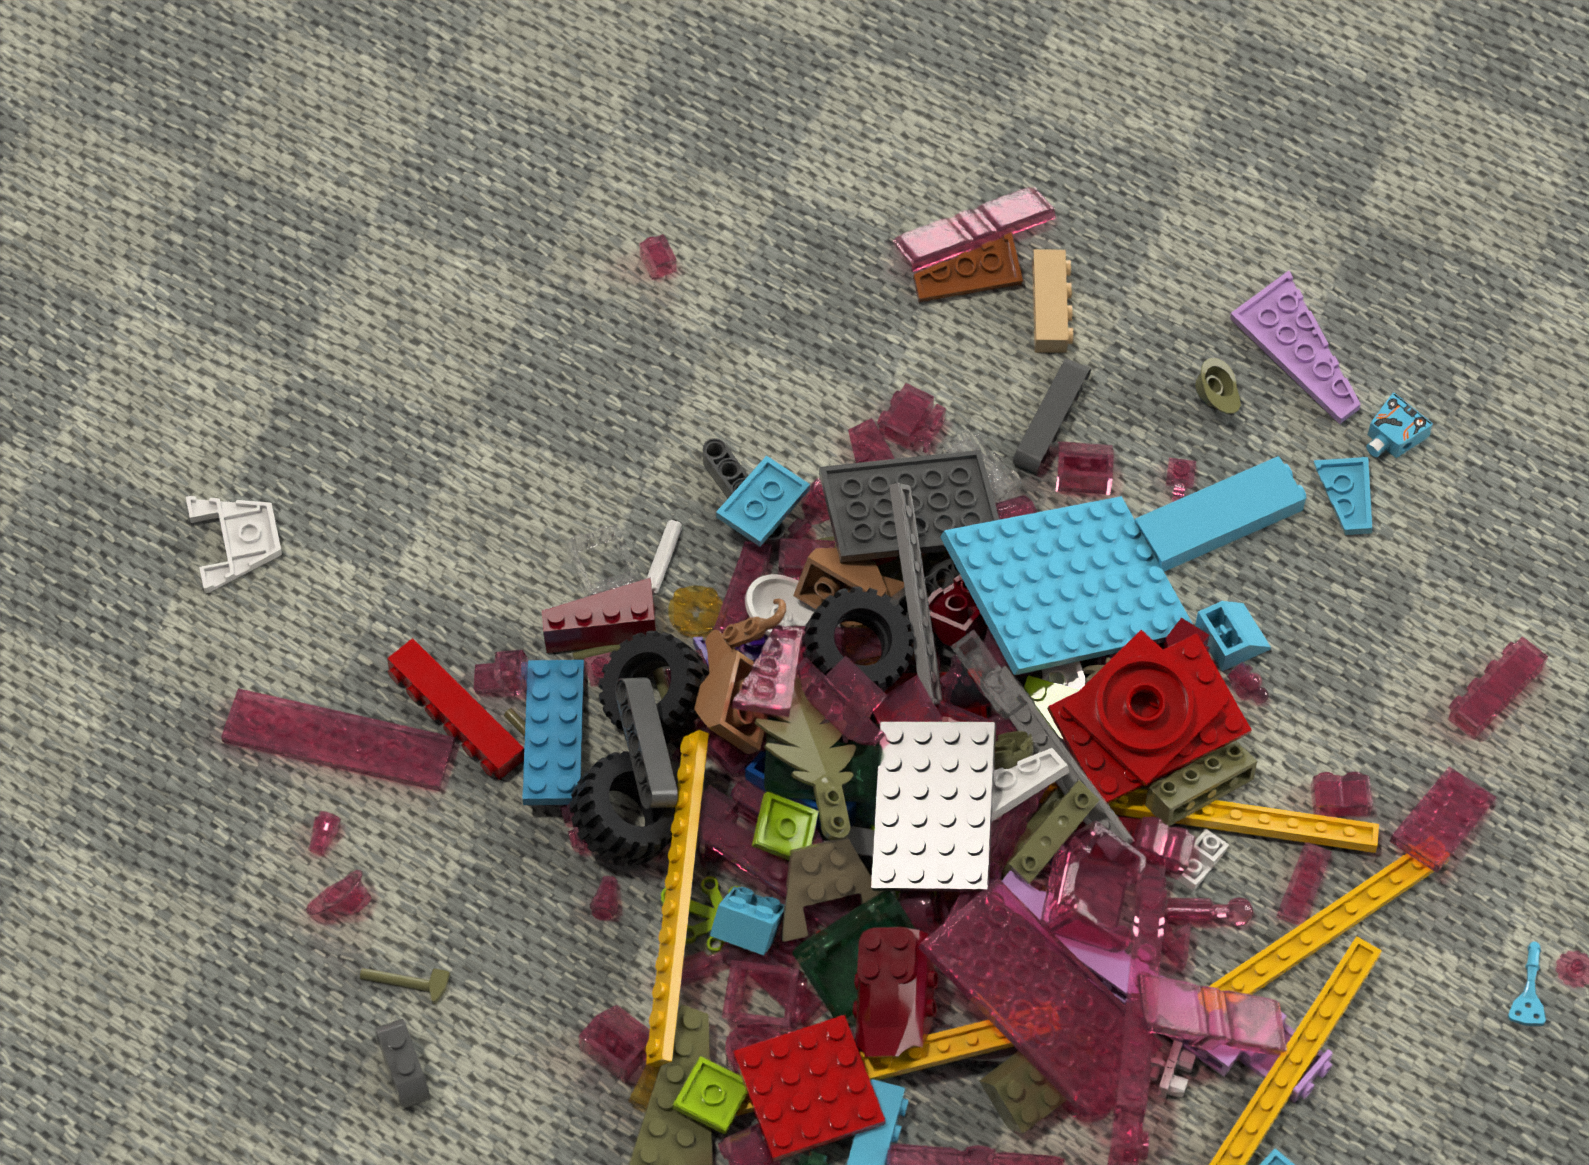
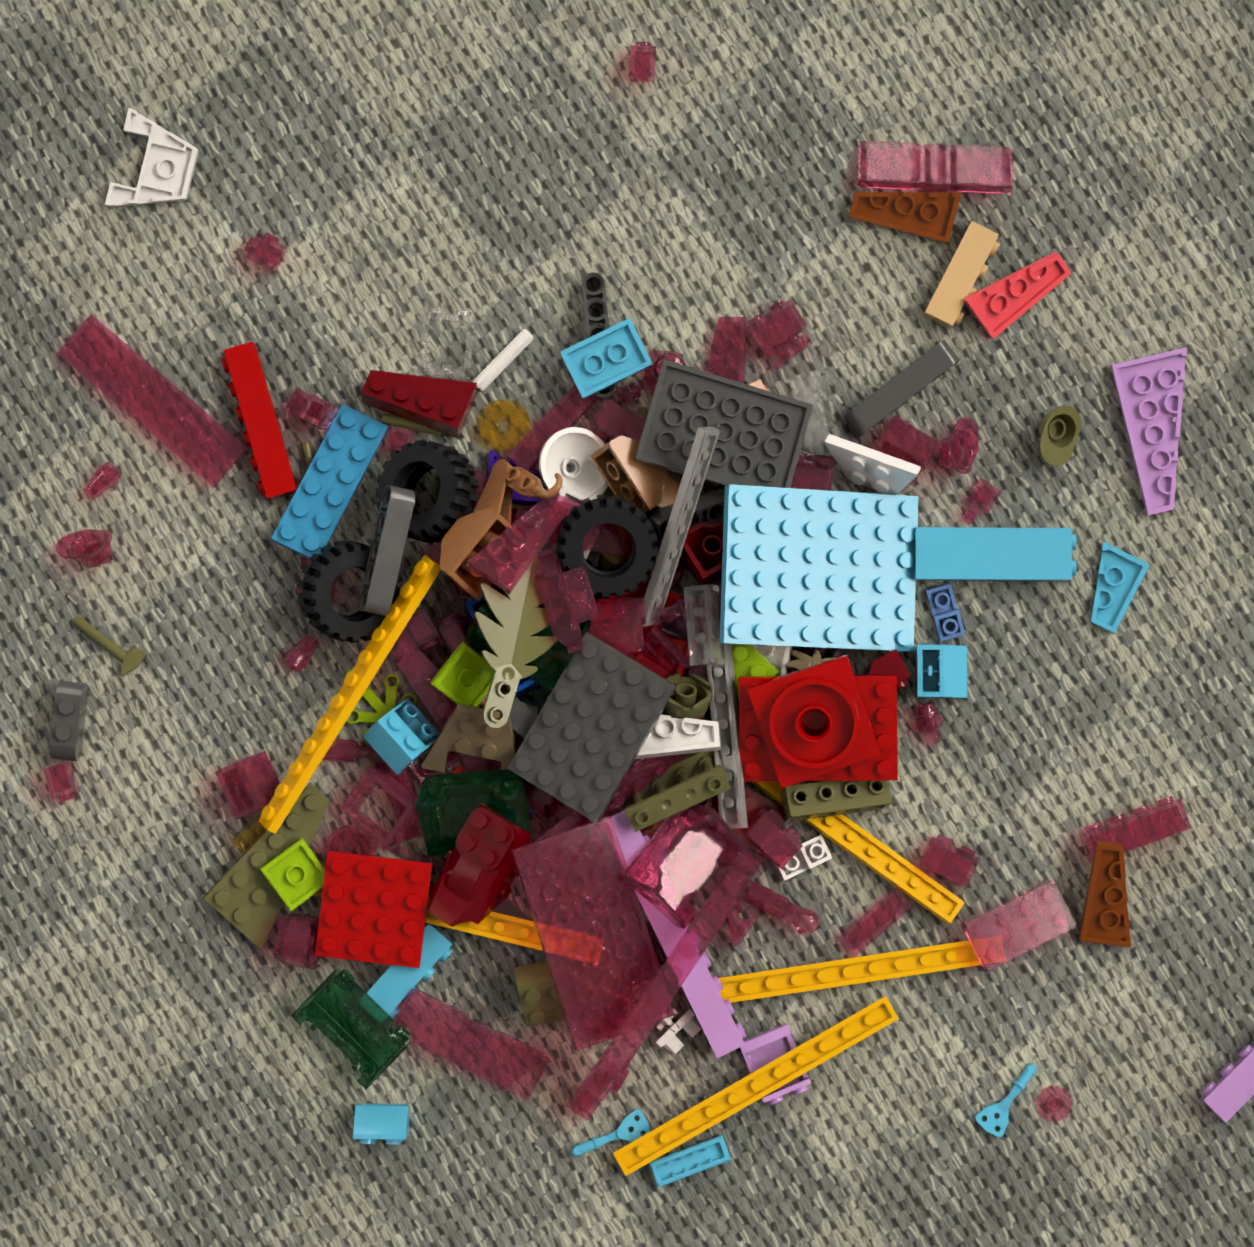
camera: 30 degrees right, 25 degrees up
(383, 561) = (265, 251): none -> clear pink brick
(423, 1127) = (61, 781): none -> clear pink brick
(1065, 481) = (871, 467): none -> white wing
(1108, 295) = (1015, 294): none -> coral wing
(1133, 440) = (960, 447): none -> clear pink piece
(1203, 584) = (945, 611): none -> medium blue slope
(1210, 1015) = (719, 1019): clear pink piece -> none
(1397, 428) = (1191, 547): medium azure torso -> none
(1512, 764) = (1105, 906): none -> dark orange wing

